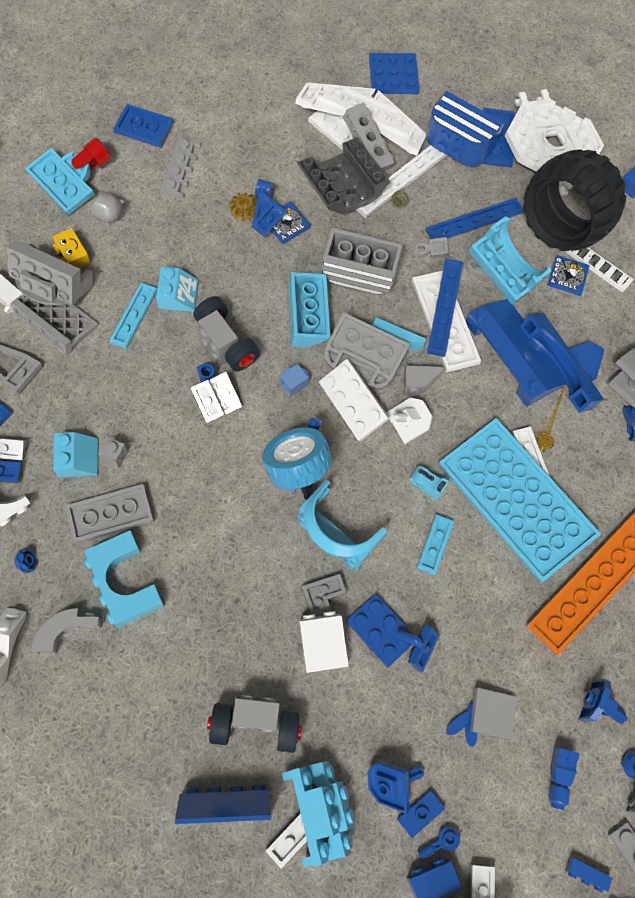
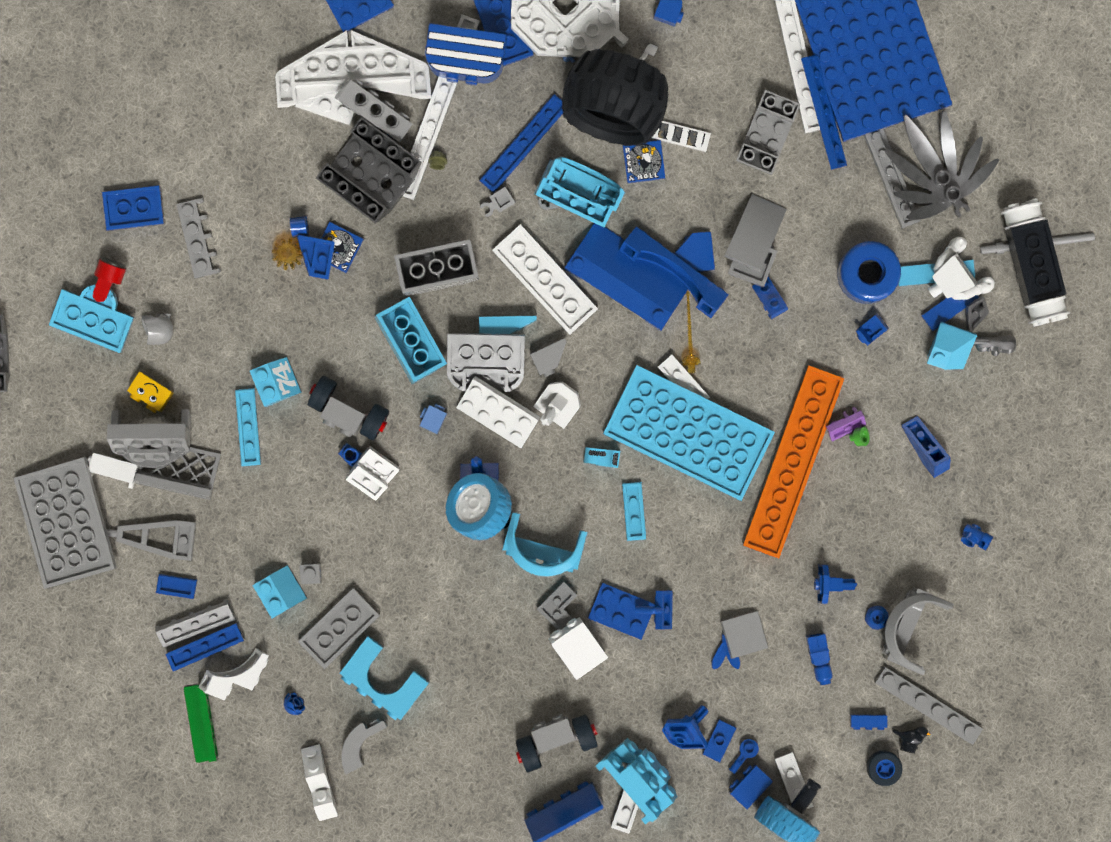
camera: 20 degrees left, 20 degrees up
(444, 307) = (538, 270): blue plate -> none

